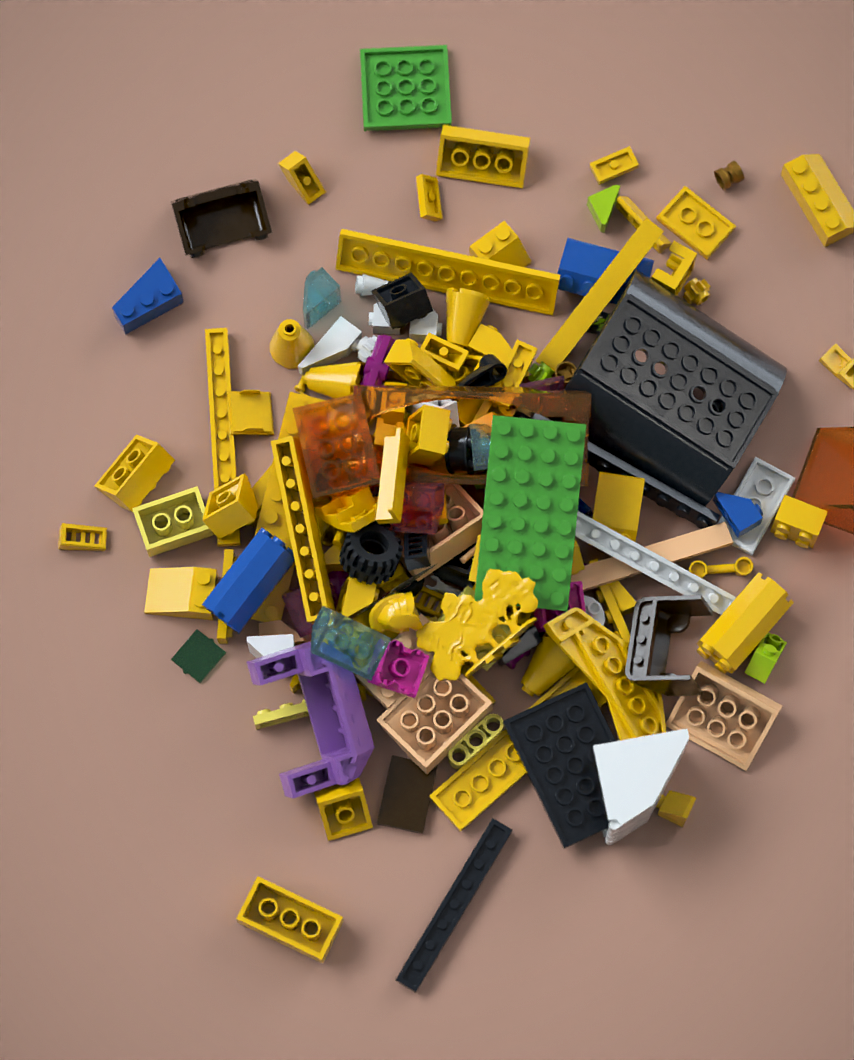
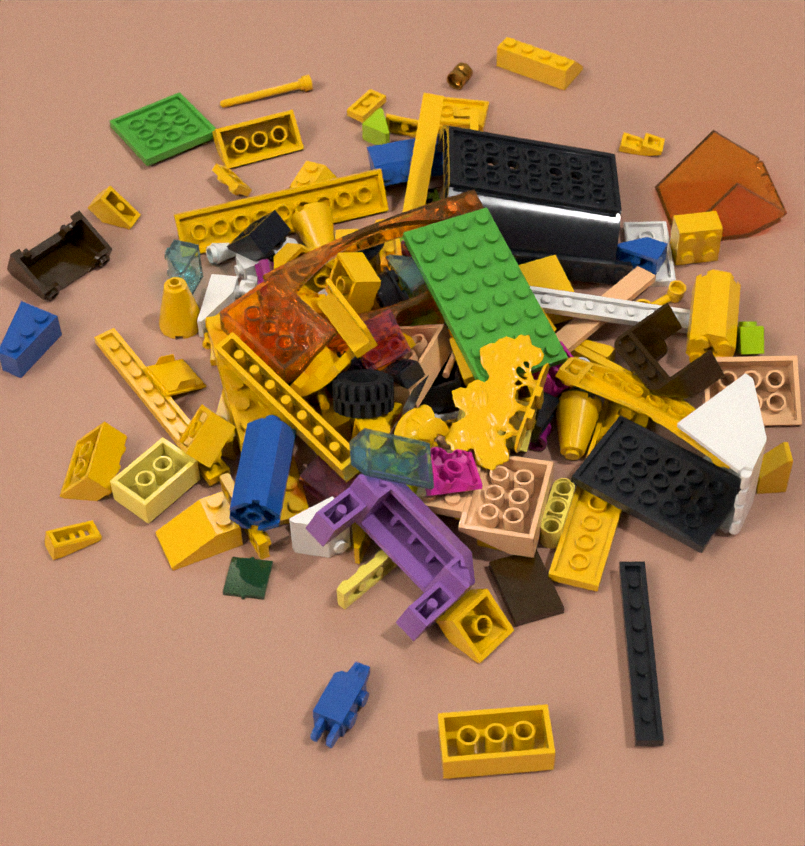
camera: 30 degrees left, 25 degrees down
(200, 816) = (340, 703): none -> blue hinge
(572, 98) = (303, 83): none -> yellow piece

